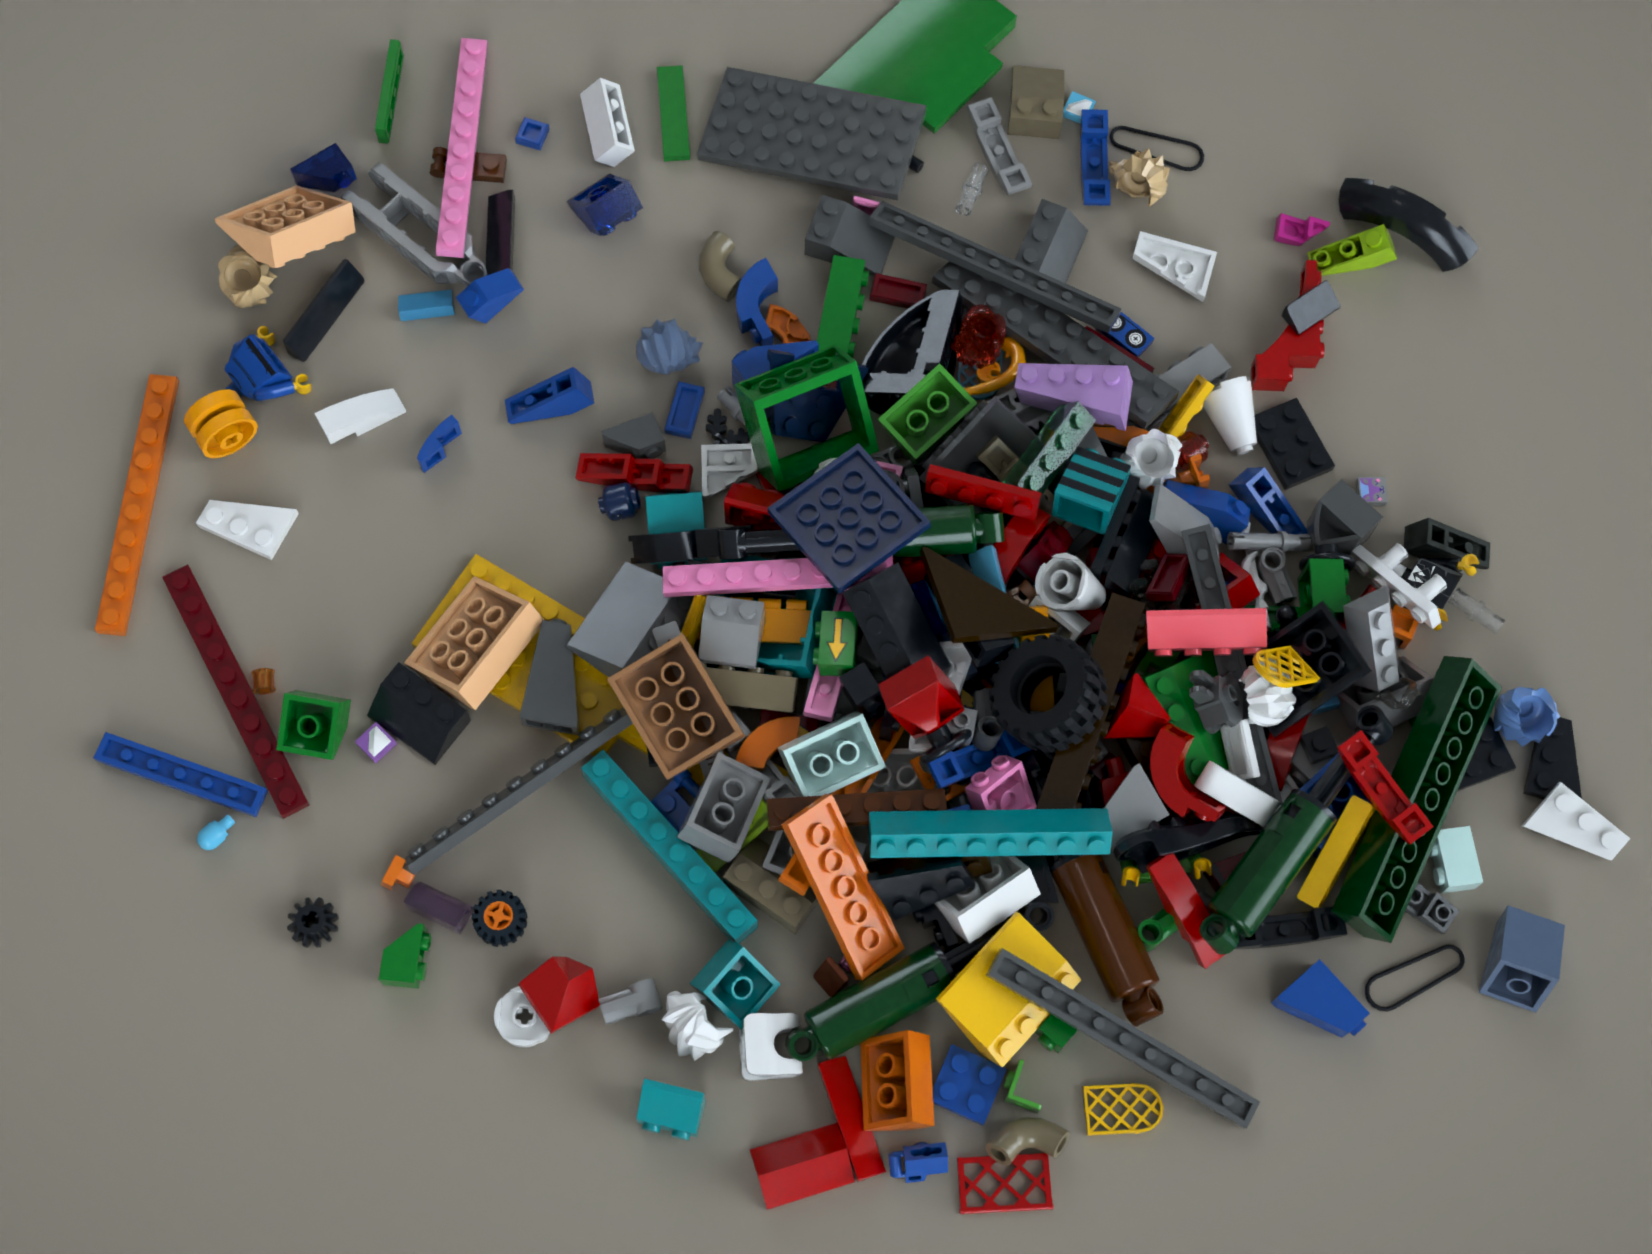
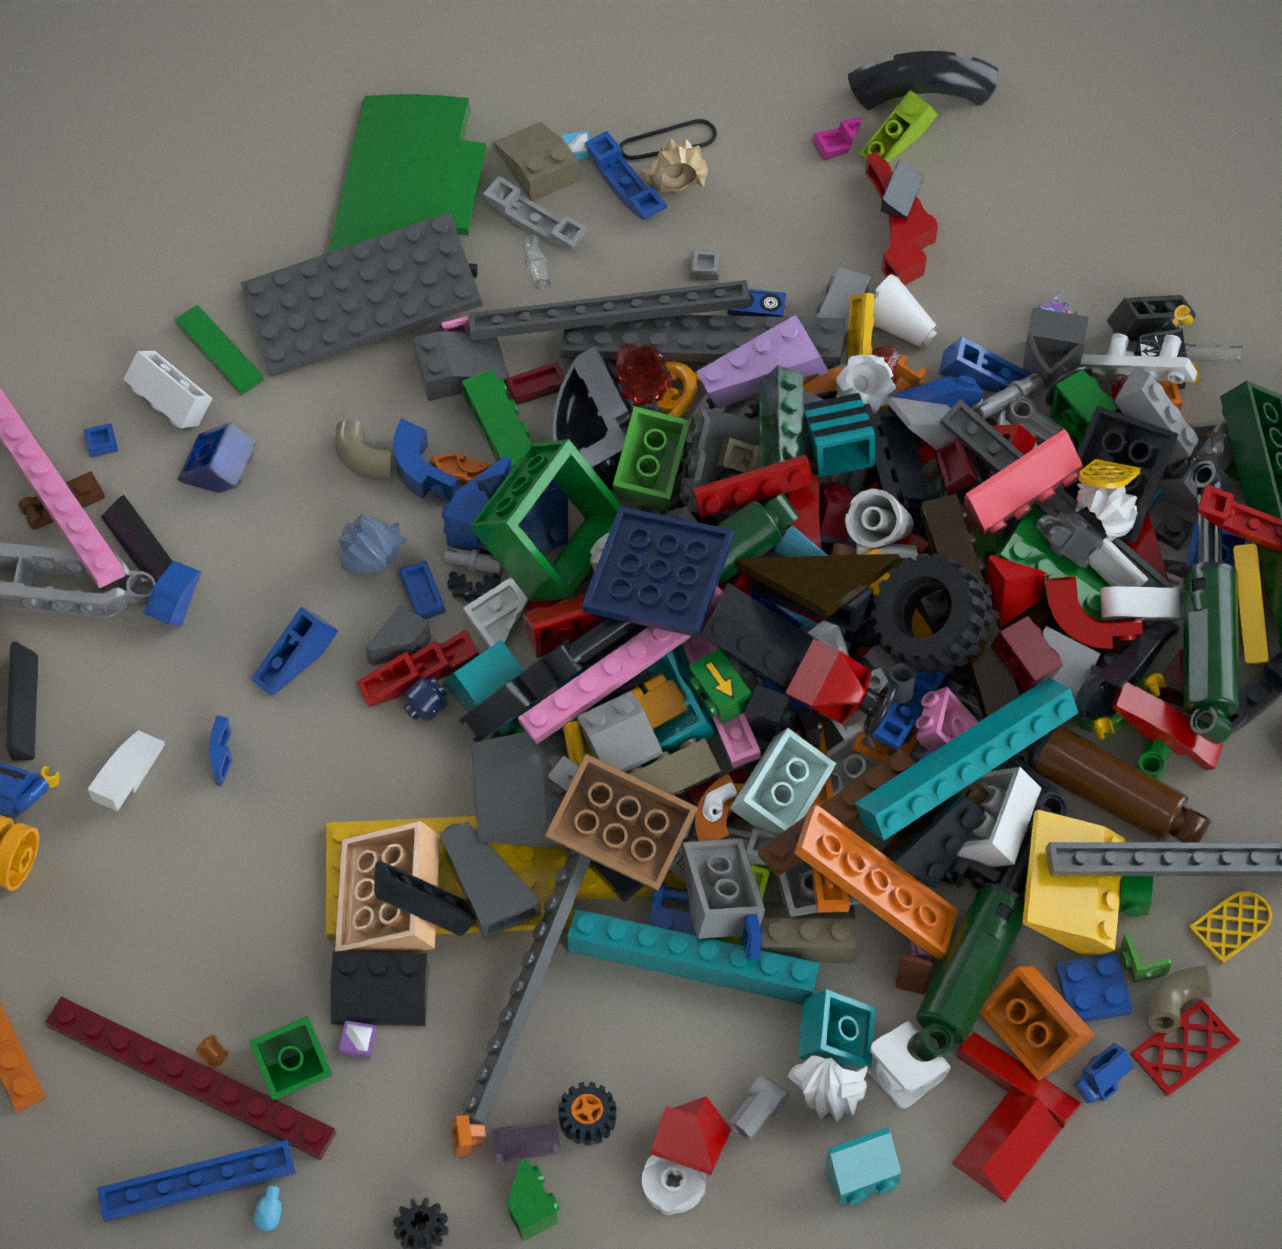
camera: 30 degrees left, 10 degrees down
(248, 525) = (91, 930): white wing -> none
(426, 305) = (114, 641): dark azure slope -> none
(483, 665) = (422, 899): none -> black slope
(715, 865) = (751, 937): none -> blue tile
(769, 734) = (714, 801): none -> white arm
(1052, 241) = (638, 262): dark grey slope -> none
(1103, 777) = (1027, 653): none -> dark red brick
(1107, 273) = (705, 264): none -> light grey tile
(1177, 262) = (758, 222): white wing -> none
(1291, 444) = (965, 311): black plate -> none

